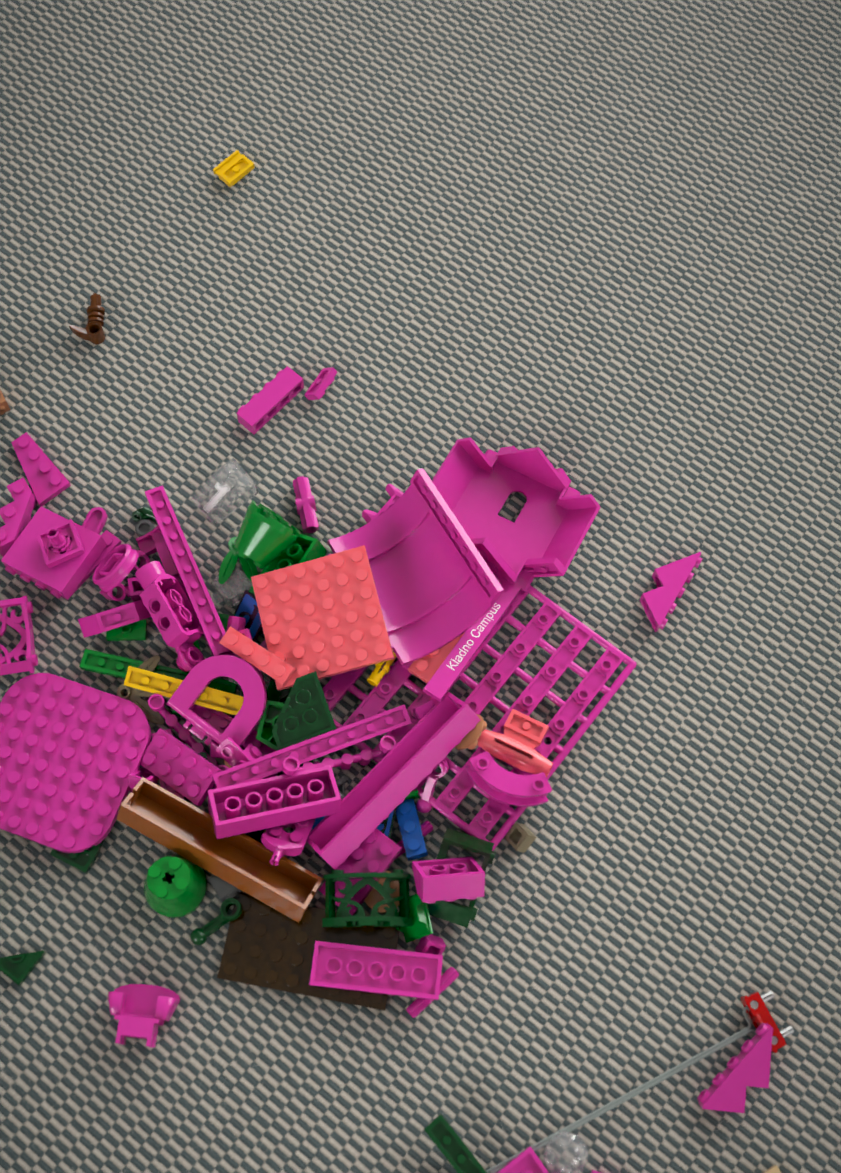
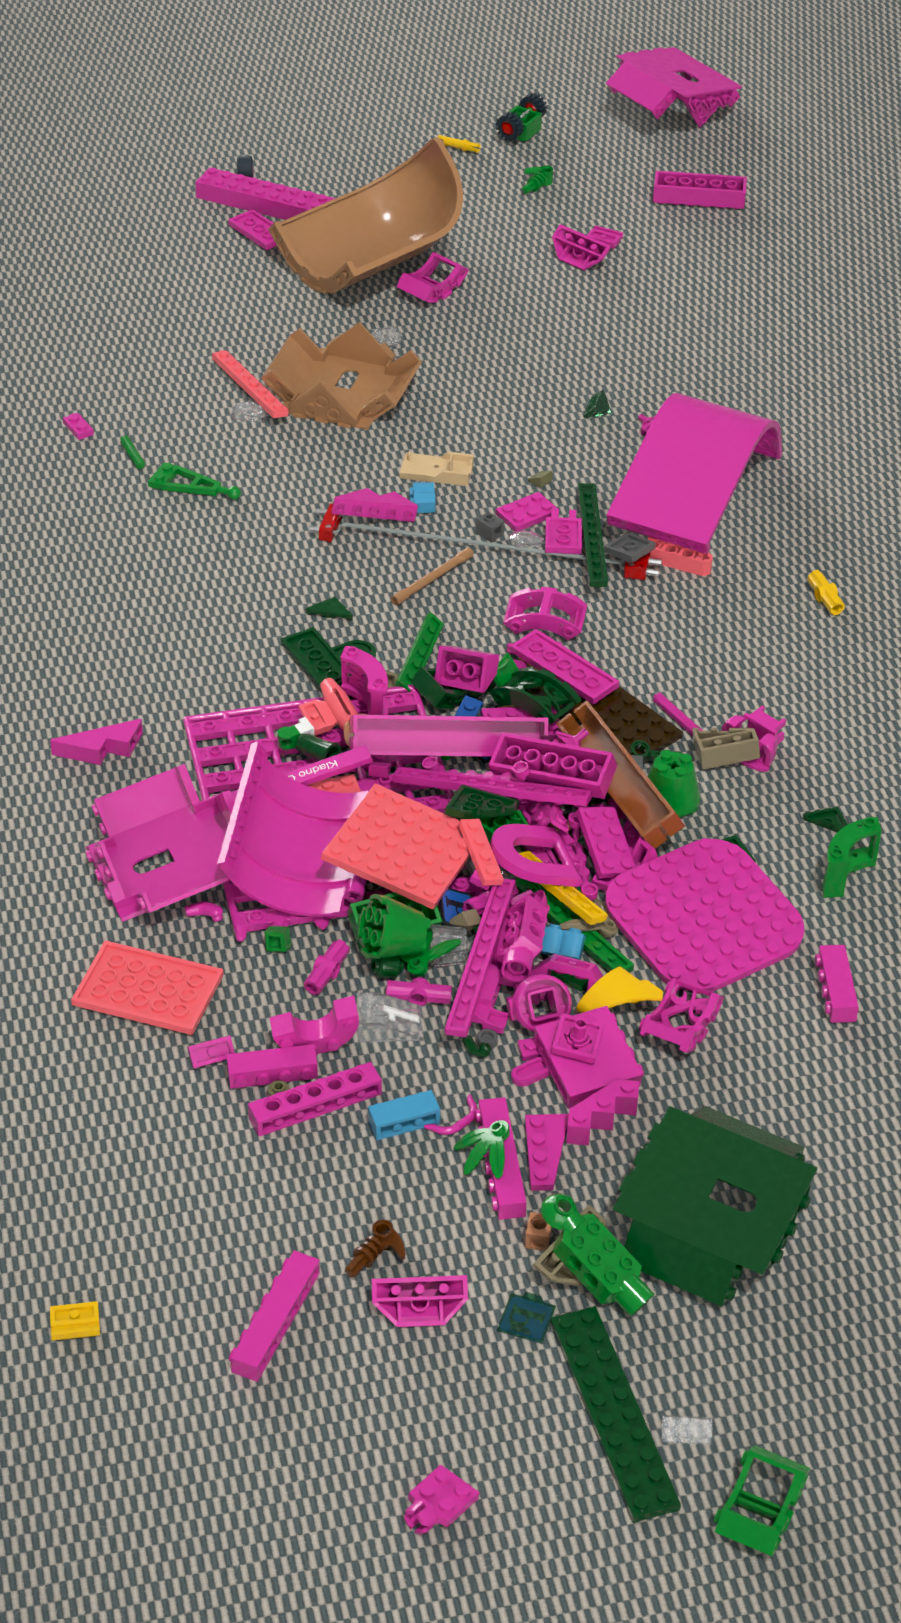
camera: 140 degrees left, 25 degrees down
(39, 306) = (420, 1299): none -> dark pink wedge
(60, 437) = (508, 1190): none -> dark pink brick
(65, 625) = (616, 989): none -> yellow panel
(69, 431) = (487, 1138): none -> green plant
(110, 450) = (459, 1124): none -> dark pink animal
(118, 243) = (274, 1316): none -> dark pink brick
(144, 644) = (563, 942): none -> dark azure brick
(151, 424) = (403, 1115): none -> dark azure brick
(161, 973) = (725, 747): none -> dark tan wedge
(220, 530) = (419, 991): none -> dark pink piece
(231, 605) = (467, 919): none -> dark tan slope
(235, 999) = (675, 713): none -> dark pink axle
(239, 358) = (314, 1099): none -> dark pink brick
(251, 384) = (277, 1086): none -> olive plate
(263, 438) = (325, 1033): none -> dark pink brick
(361, 502) = (277, 938): none -> green slope
(411, 404) = (148, 987): none -> coral plate
(486, 1026) = (545, 598): none -> dark pink window
(489, 690) = (316, 747): none -> dark green plant
(523, 897) = (420, 650): none -> green plate
(525, 688) = (288, 736): none -> green leg
(591, 817) = (318, 657): none -> dark green plate
(604, 1071) = (405, 593): none -> medium nougat piece
(615, 1145) = (490, 527): none -> dark grey brick
(652, 898) = (330, 608): none -> dark green tile
(717, 1140) = (424, 496): none -> dark azure brick

